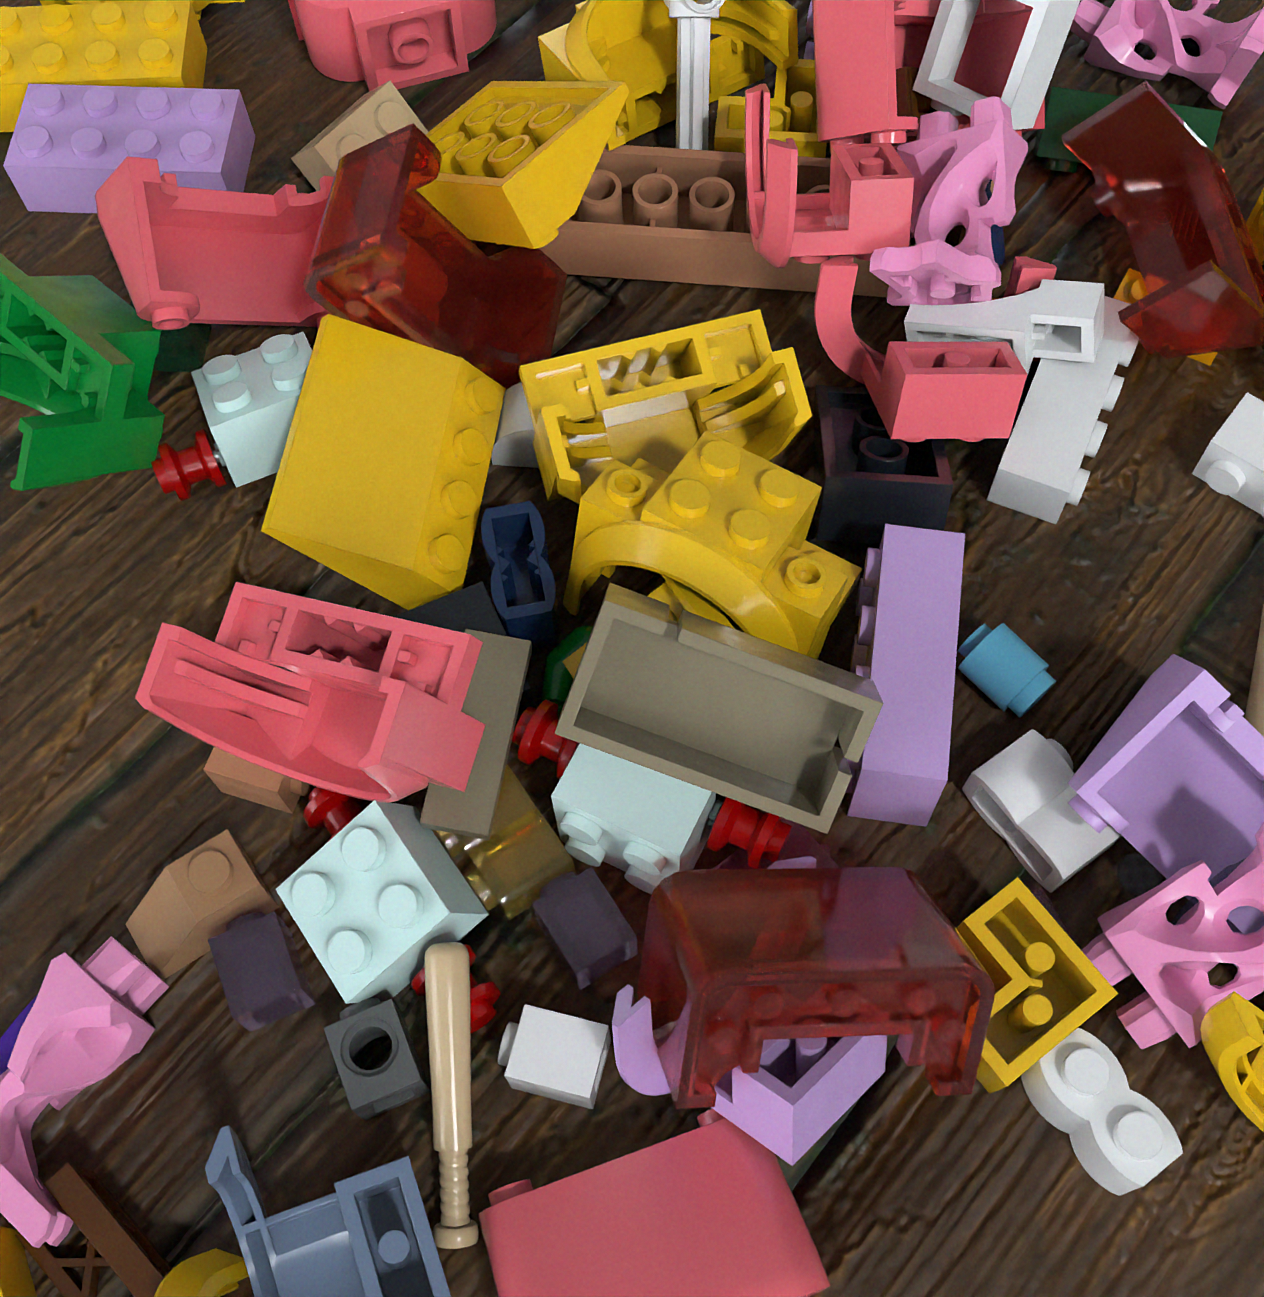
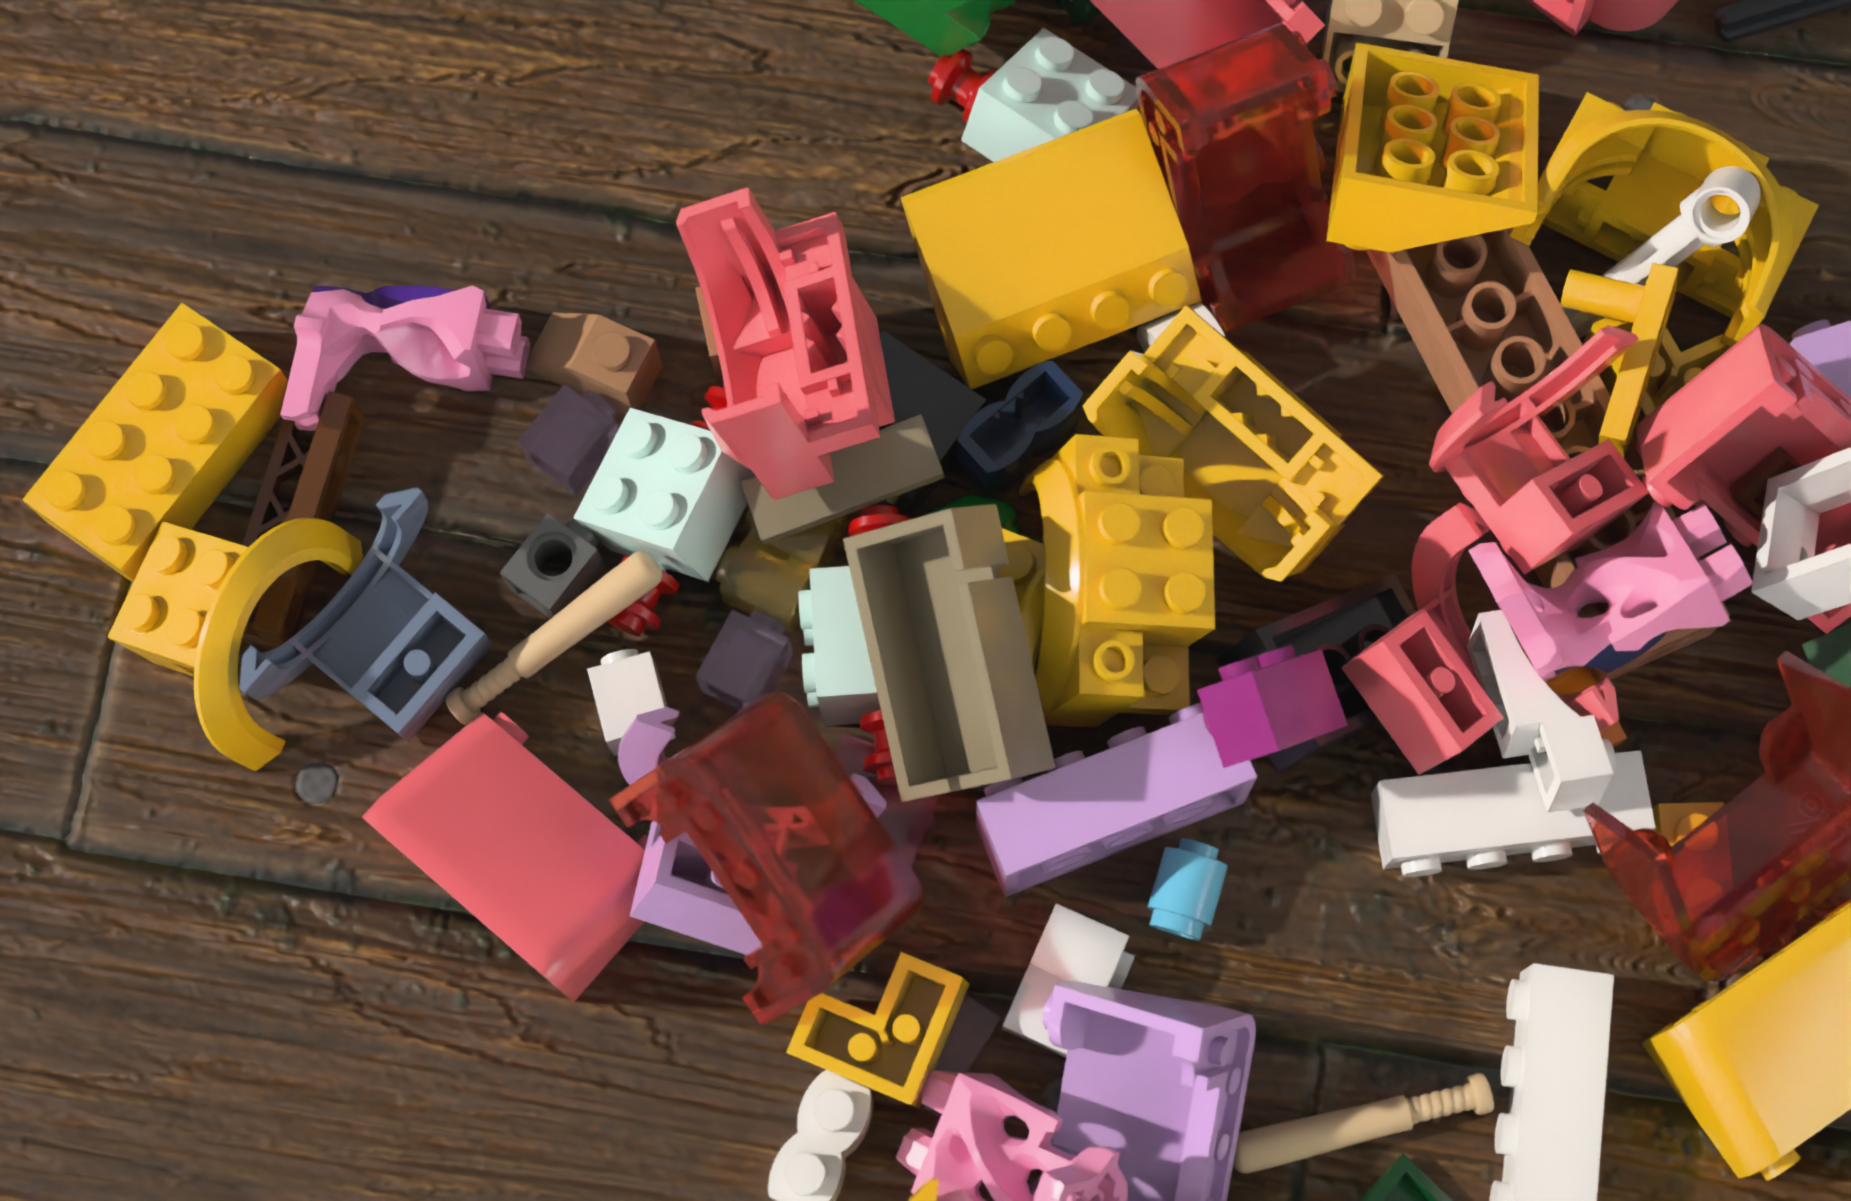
camera: 60 degrees right, 10 degrees up
(788, 119) = (1649, 311): none -> yellow piece
(917, 483) = (1270, 704): none -> magenta brick

